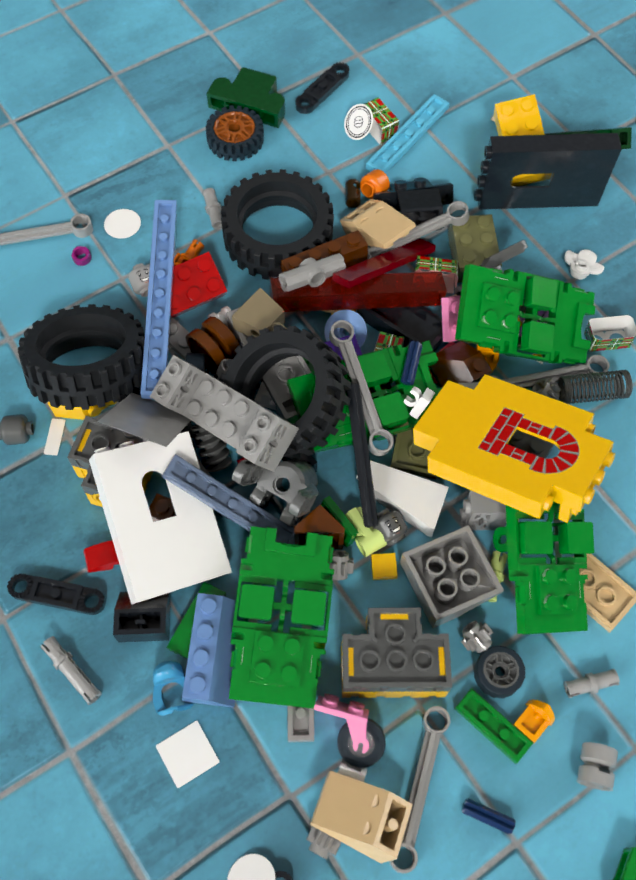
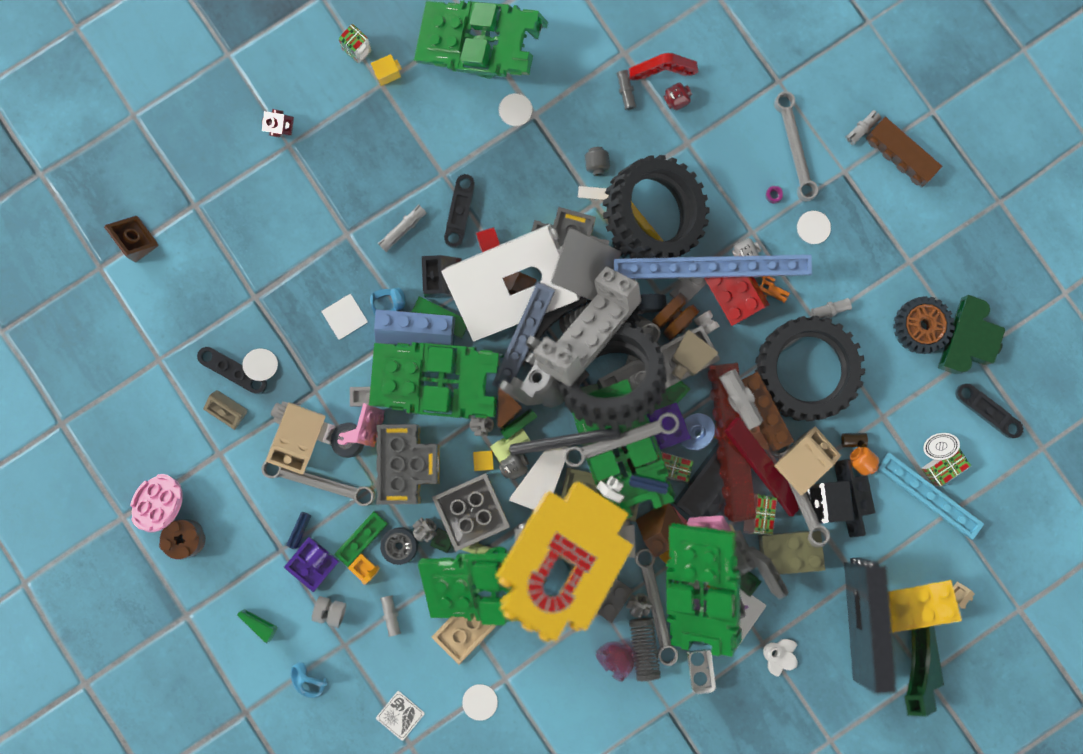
camera: 90 degrees right, 20 degrees up
(19, 174) = (863, 127): none -> light grey pin
(51, 142) = (903, 152): none -> reddish brown brick
(488, 614) = (441, 541): none -> dark green tile
(534, 795) = (311, 564): none -> dark purple plate
(611, 414) = (616, 658): none -> clear pink cylinder

